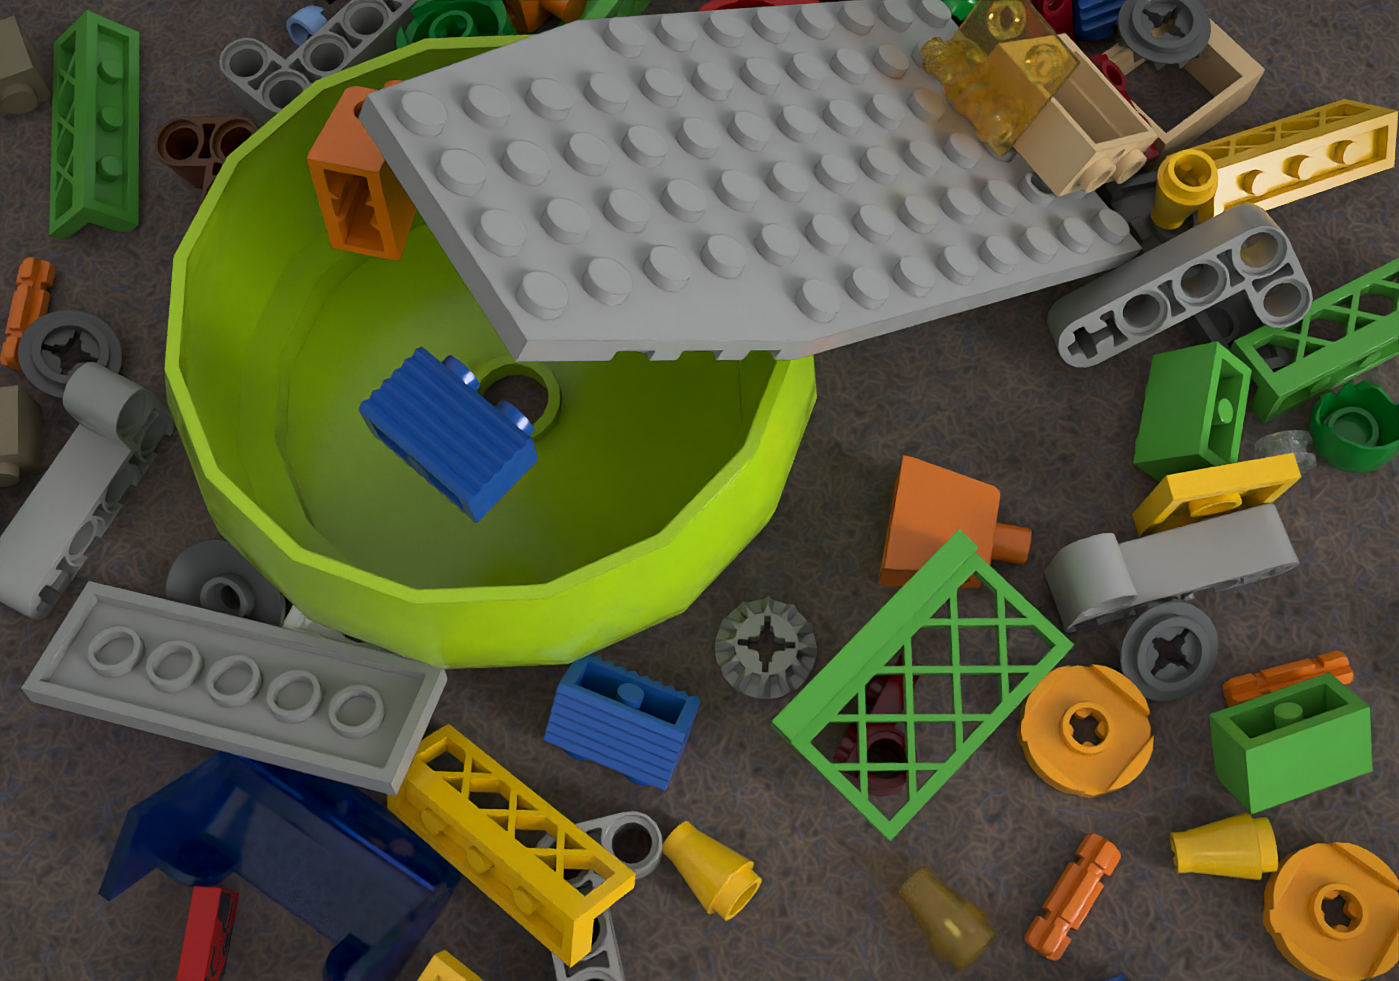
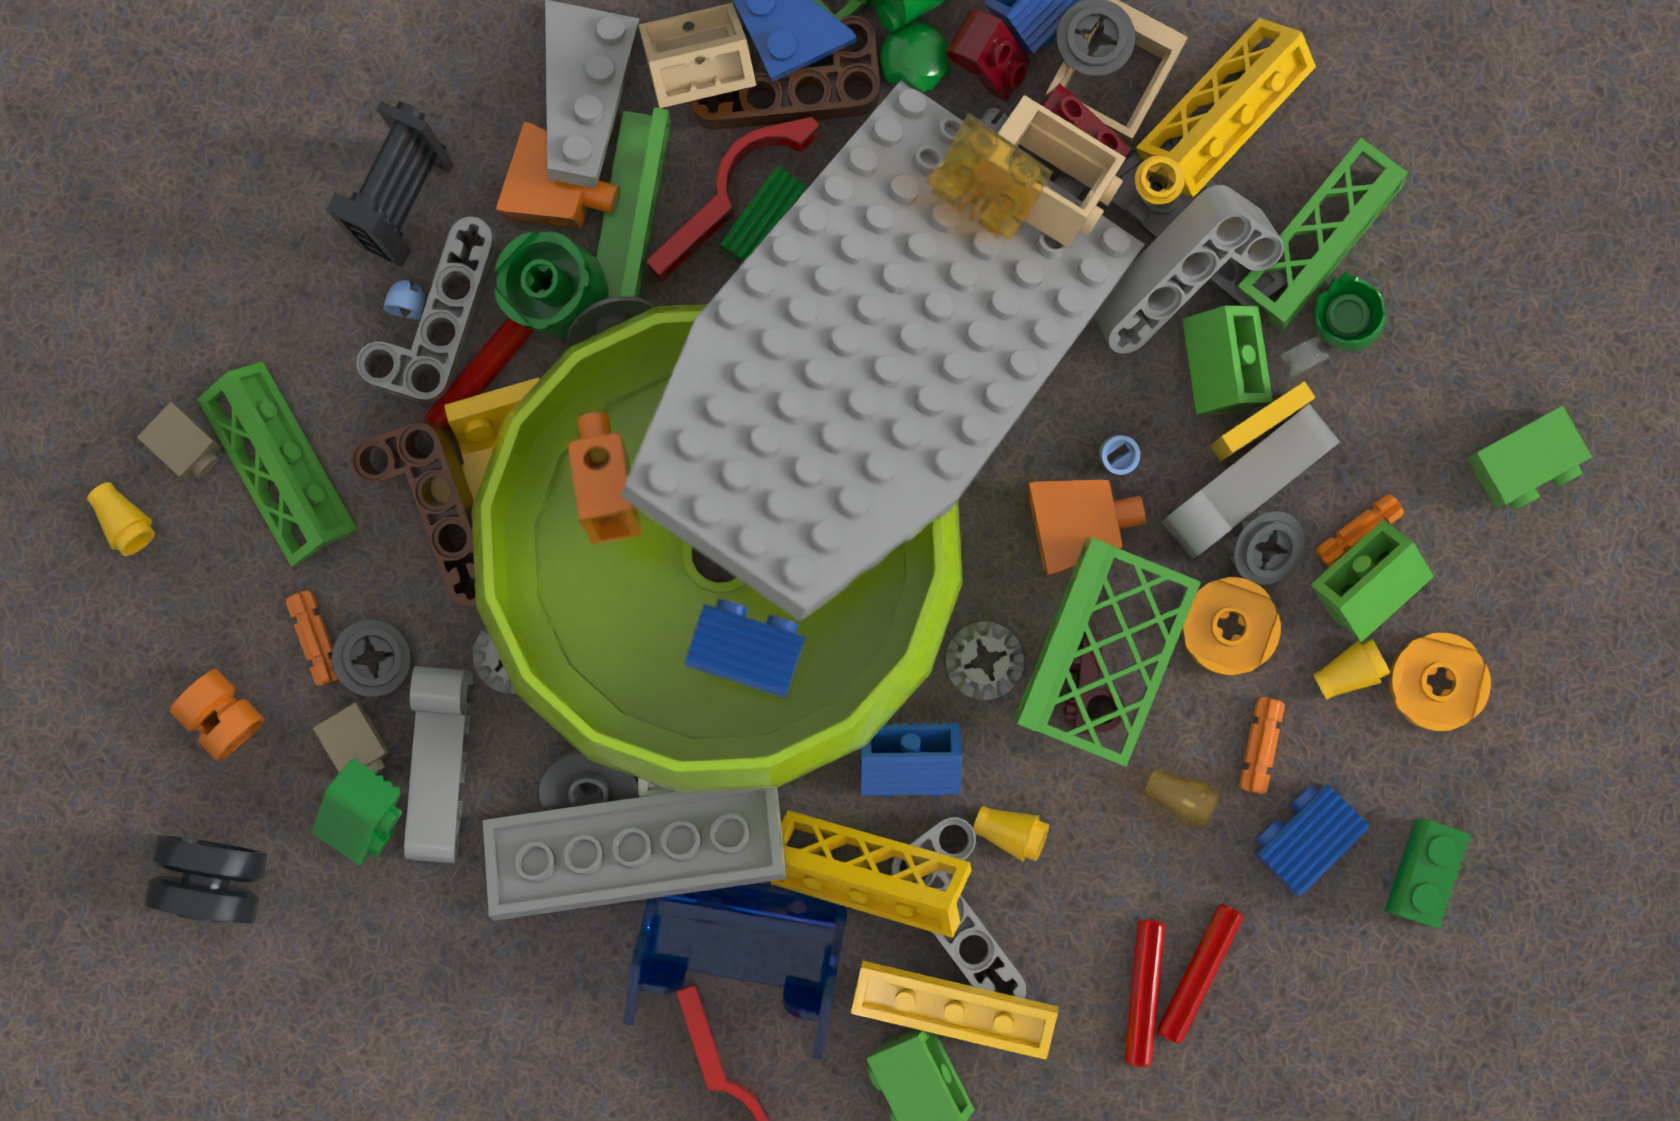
camera: 20 degrees left, 15 degrees up
(1018, 461) = (1124, 462): none -> light blue hinge

